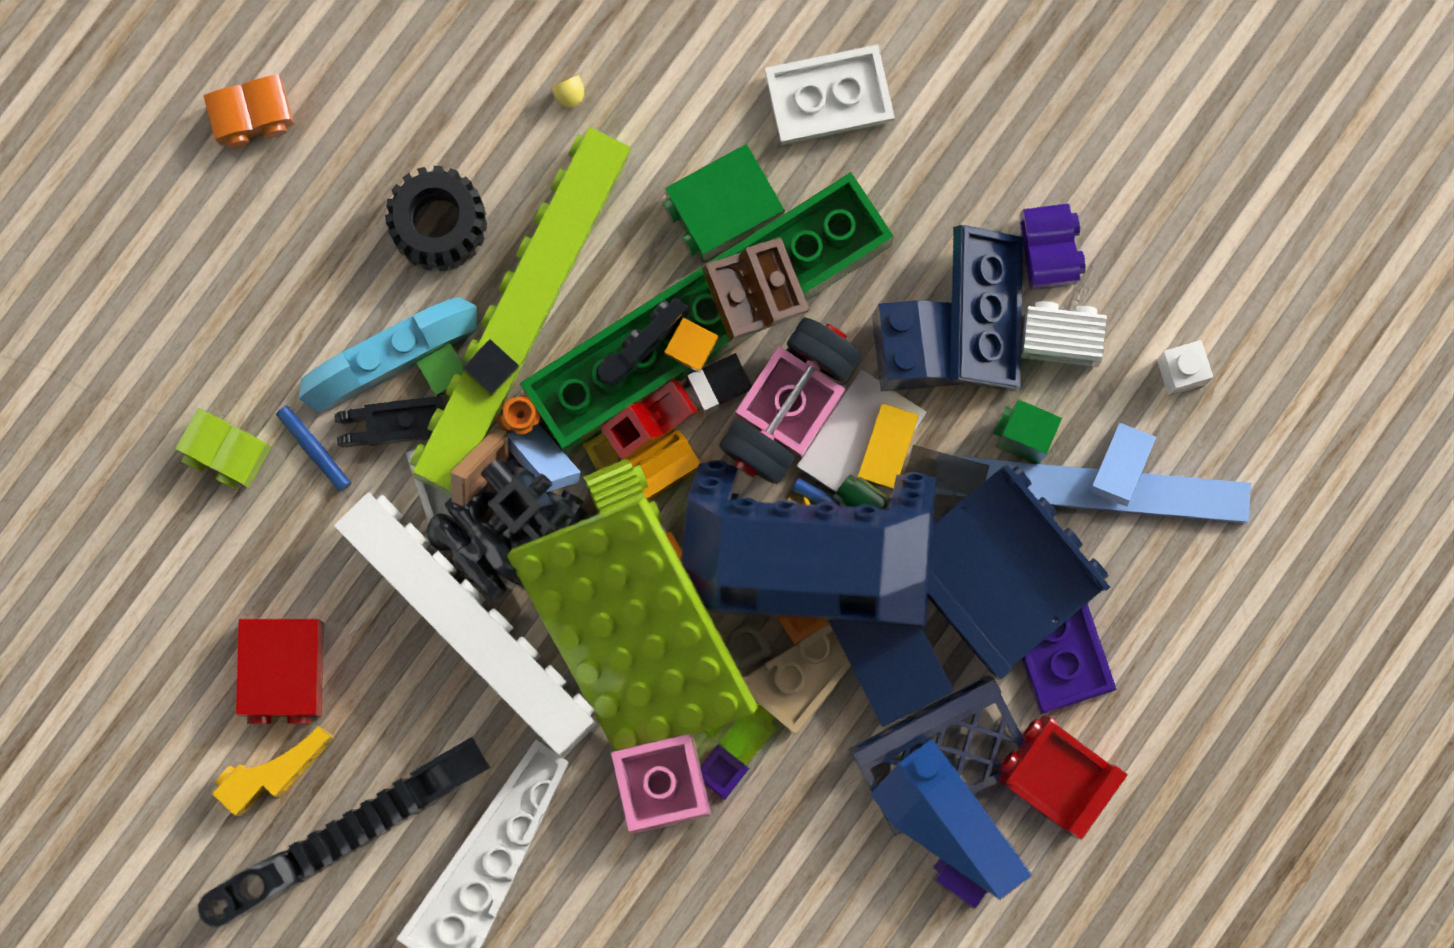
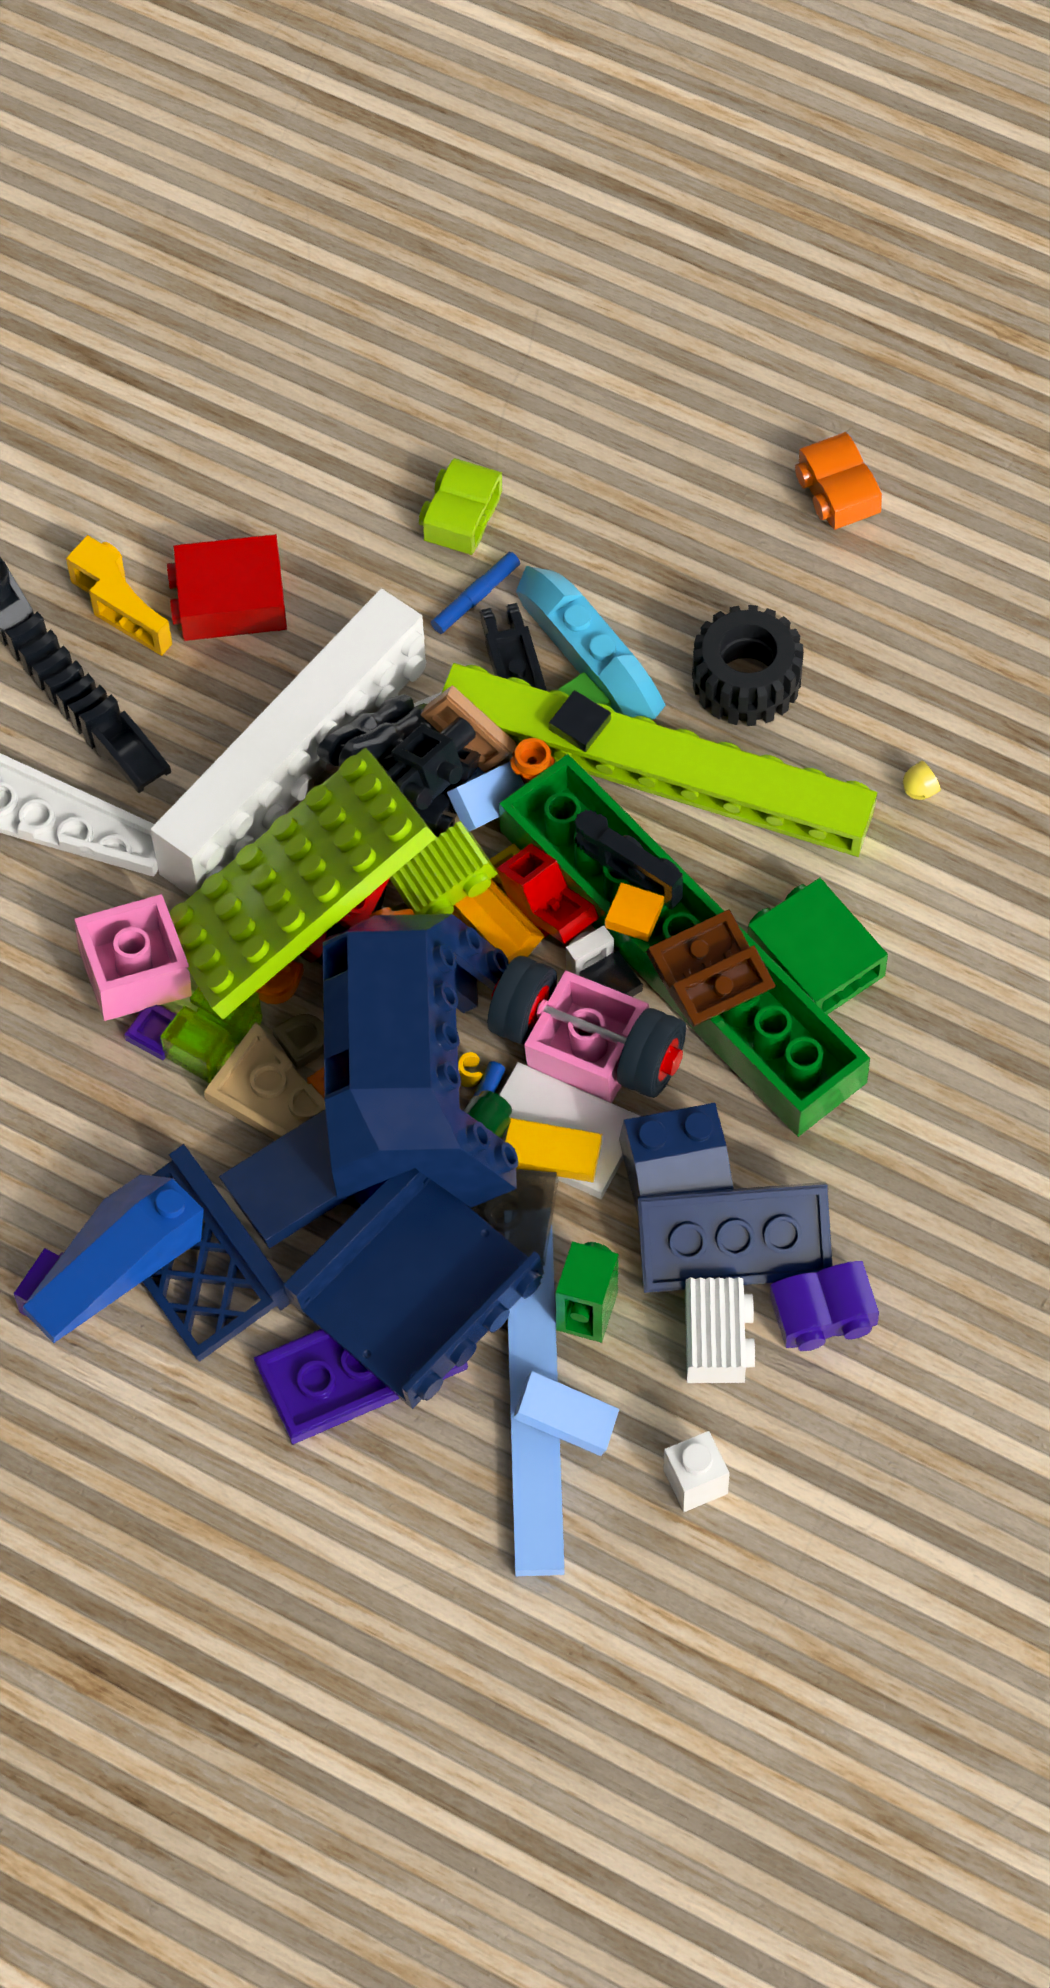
camera: 85 degrees right, 20 degrees down
(829, 94) = (968, 1047): white plate -> none
(1060, 777) = (180, 1379): red panel -> none

